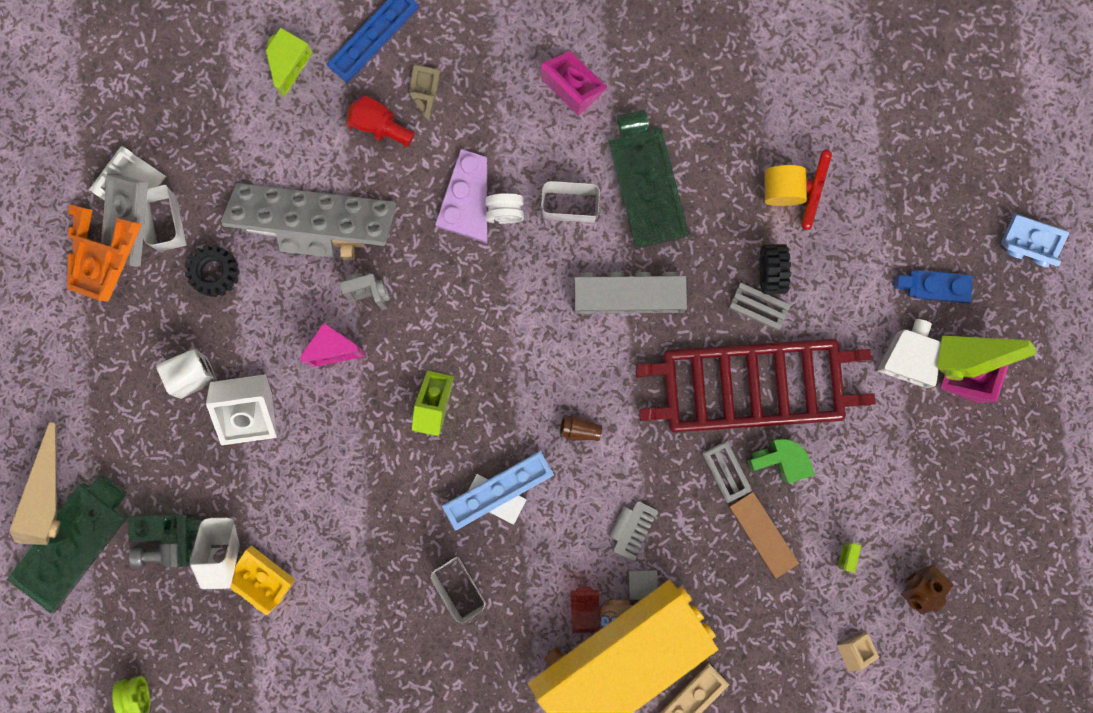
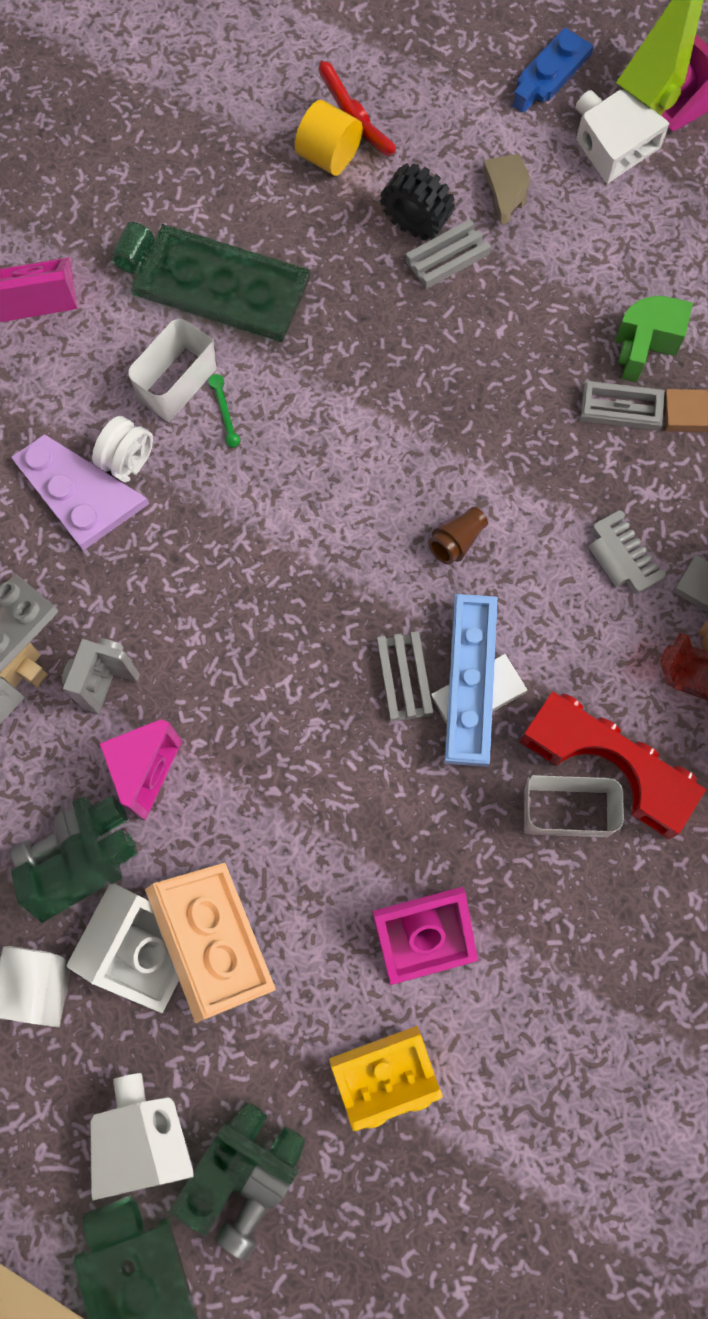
camera: 50 degrees left, 10 degrees down
(149, 478) = (136, 1142): none -> white torso
(212, 574) = (279, 1096): white piece -> none
(265, 355) = (85, 861): none -> clear green hips
(268, 446) = (209, 941): none -> light nougat tile
(344, 553) = (425, 935): none -> dark pink slope
(432, 403) = (304, 690): lime slope -> none
(496, 436) = (398, 642): none -> light grey tile
(500, 633) = (660, 794): none -> red arch
(584, 229) = (216, 383): none -> green hinge
(630, 294) = (332, 376): light grey brick -> none
(756, 419) = (580, 332): dark red bar -> none
(831, 312) = (508, 182): none -> dark tan slope

